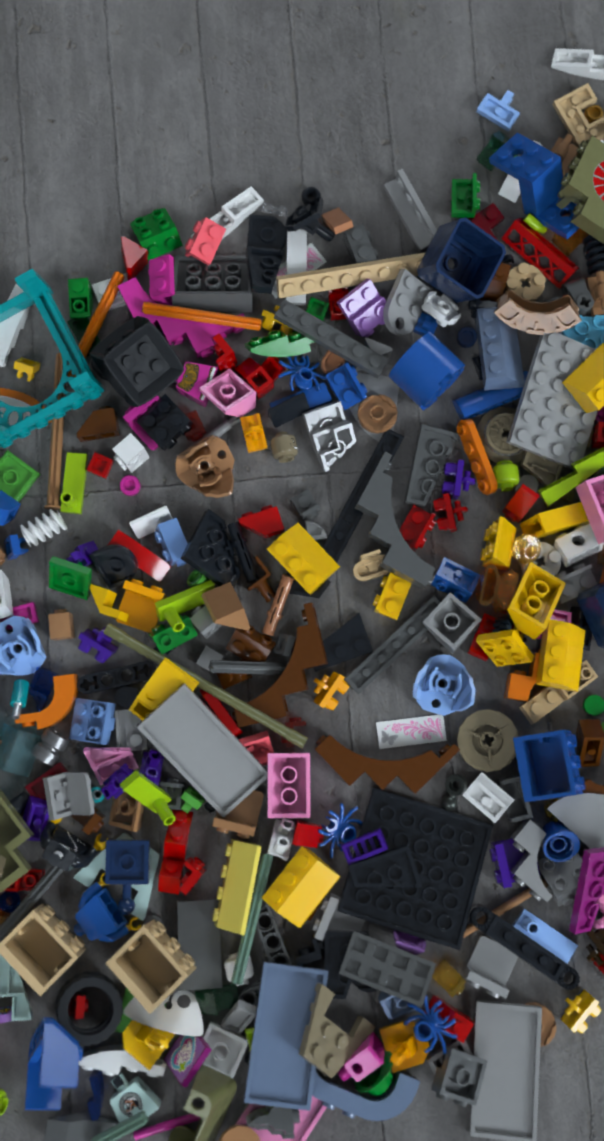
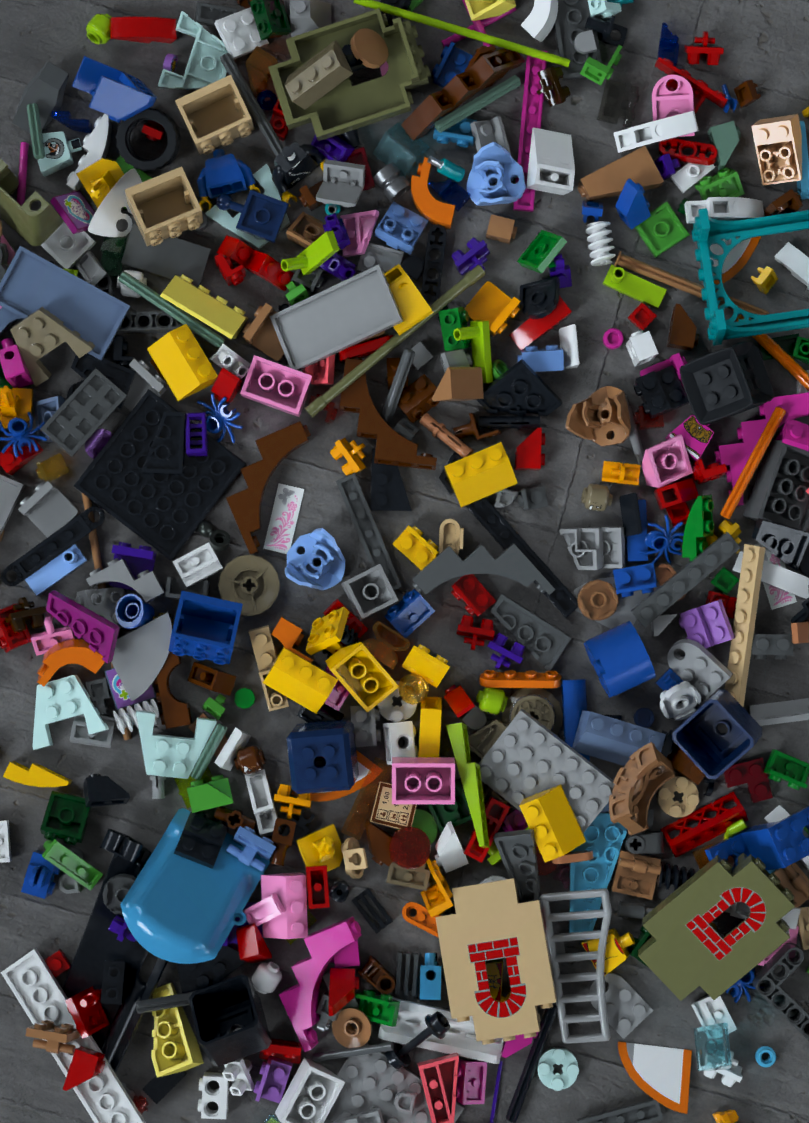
camera: 115 degrees right, 5 degrees up
(104, 600) = (507, 275): yellow slope -> none

